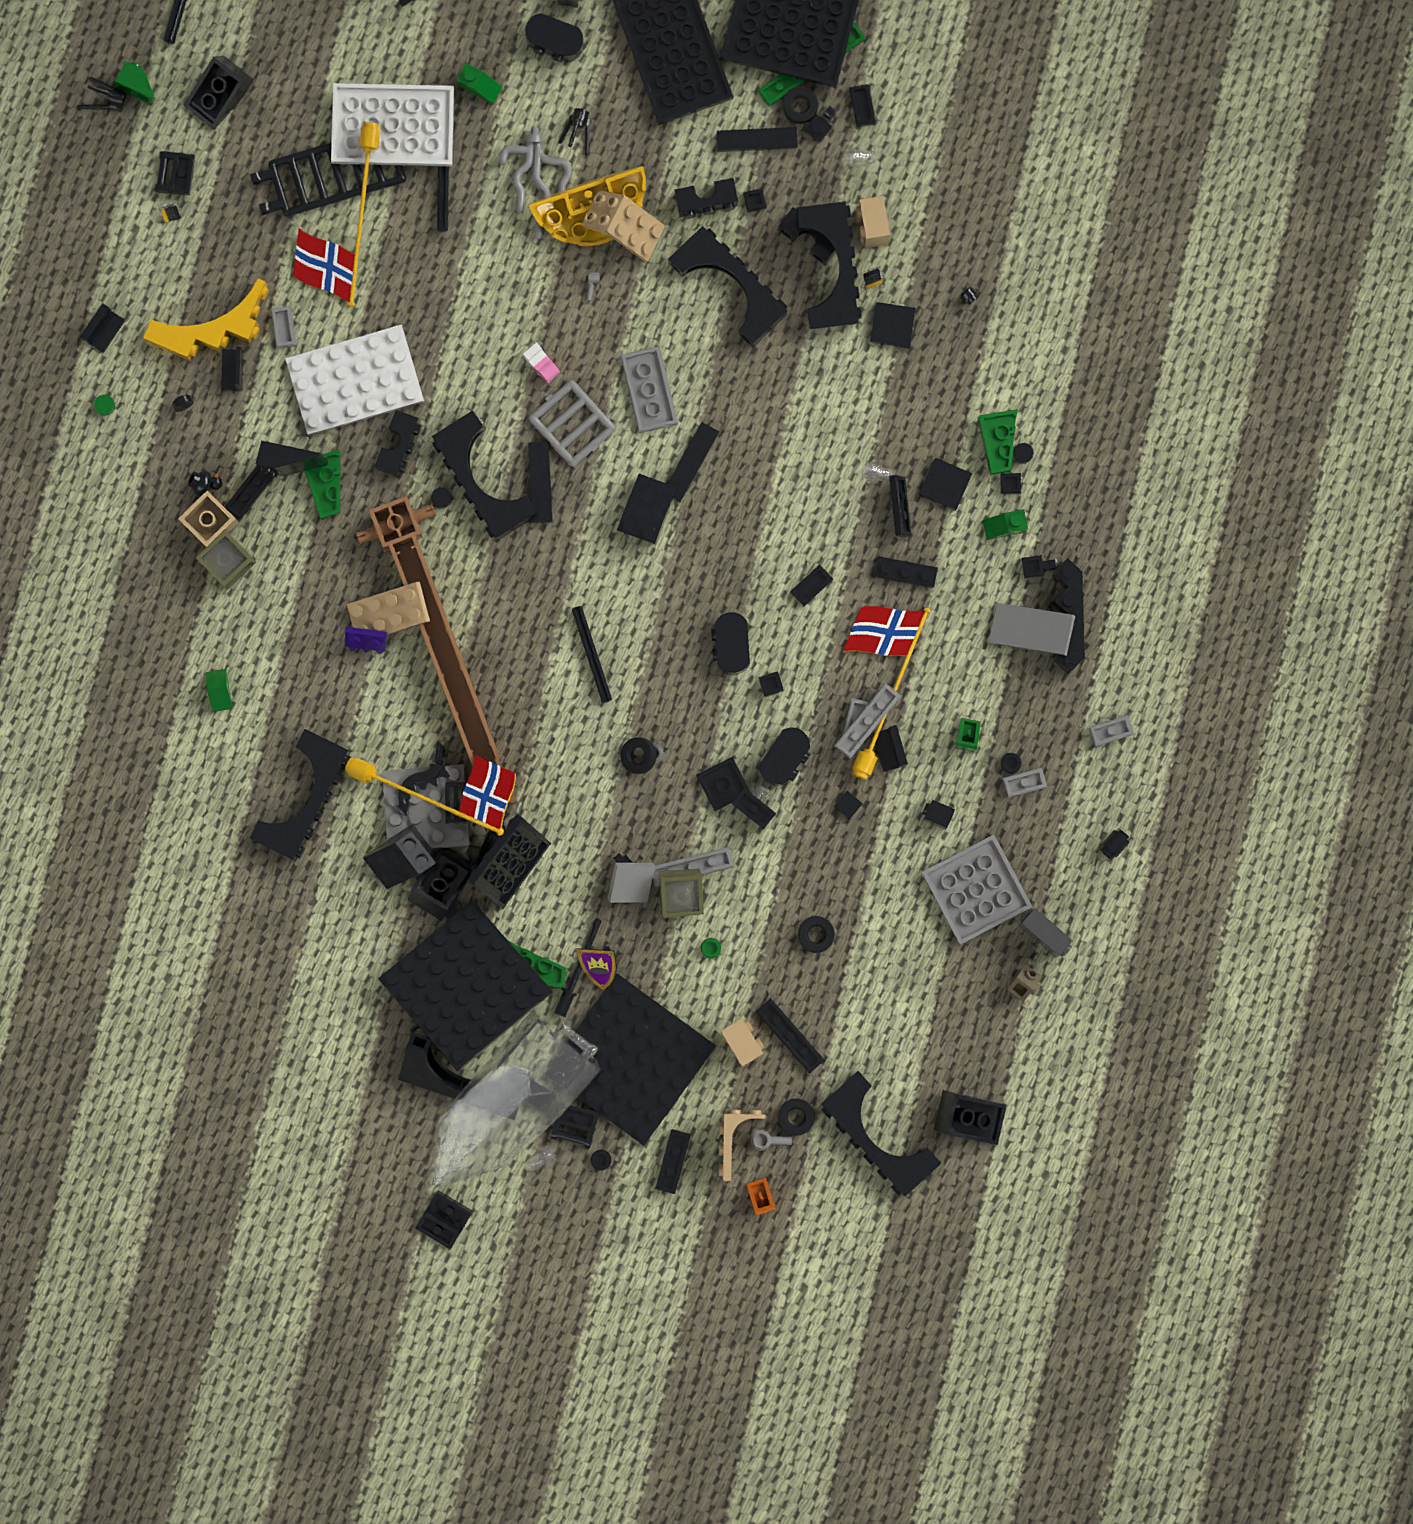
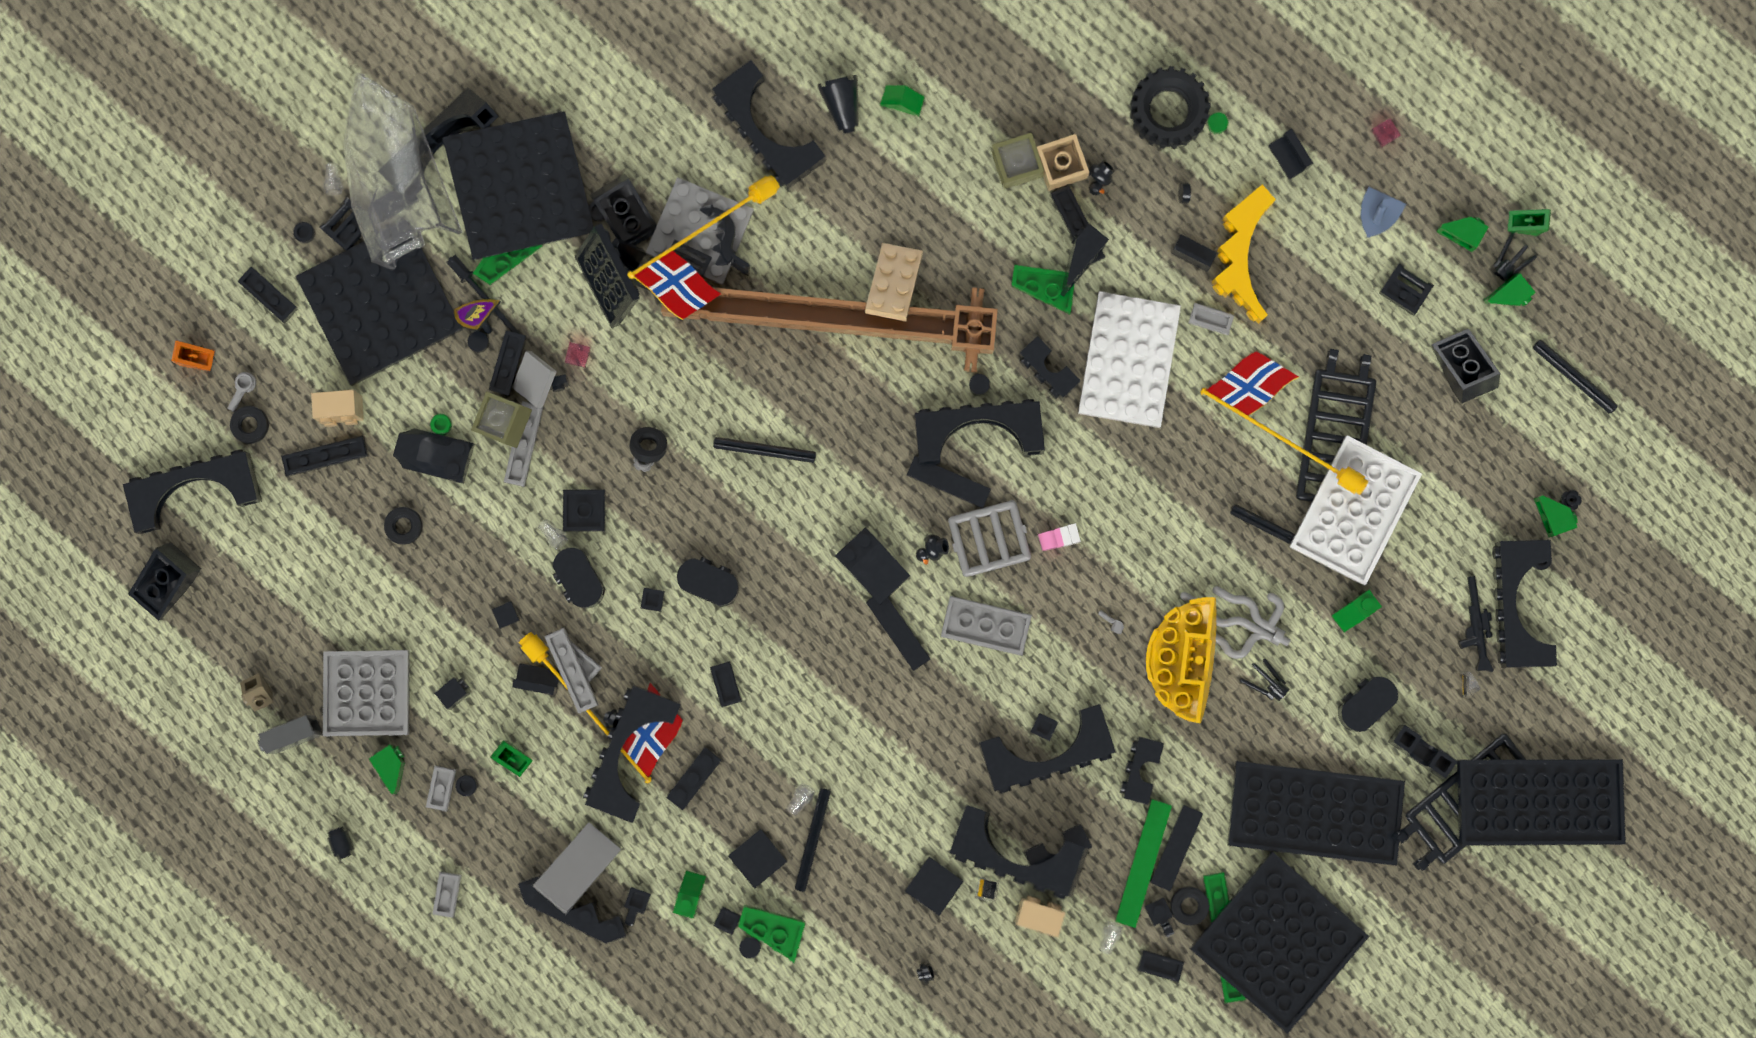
camera: 115 degrees right, 0 degrees up
(42, 255) = (1385, 133): none -> clear pink plate
(63, 95) = (1529, 221): none -> green slope
(99, 145) = (1465, 232): none -> green slope
(99, 428) = (1177, 82): none -> black tyre
(116, 229) = (1379, 212): none -> sand blue shield
(170, 211) = (1371, 267): slope -> none
(247, 740) = (842, 102): none -> black cone
(365, 639) = (879, 251): dark purple plate -> none
(401, 857) = (664, 186): black slope -> none
(444, 1219) = (324, 69): black slope -> none
(589, 859) = (577, 355): none -> clear pink plate
(606, 464) = (934, 549): none -> black animal
(622, 953) = (478, 341): none -> black tile
(624, 222) = (1153, 678): tan bracket -> none
(627, 916) = (507, 363): none -> black plate
(710, 297) = (1044, 727): none -> black plate
(727, 1128) = (272, 364): tan bracket -> none
(740, 939) = (434, 454): none -> black slope
(754, 200) = (1118, 816): black tile -> none
(754, 808) = (543, 524): black panel -> none
(784, 160) = (1143, 863): none -> green tile
(872, 645) = (607, 791): none -> black arch
(891, 666) = (609, 719): none -> black plate
(900, 506) = (757, 804): black tile -> none
(906, 445) = (812, 840): none -> black axle
(1028, 836) = (389, 766): none -> green slope

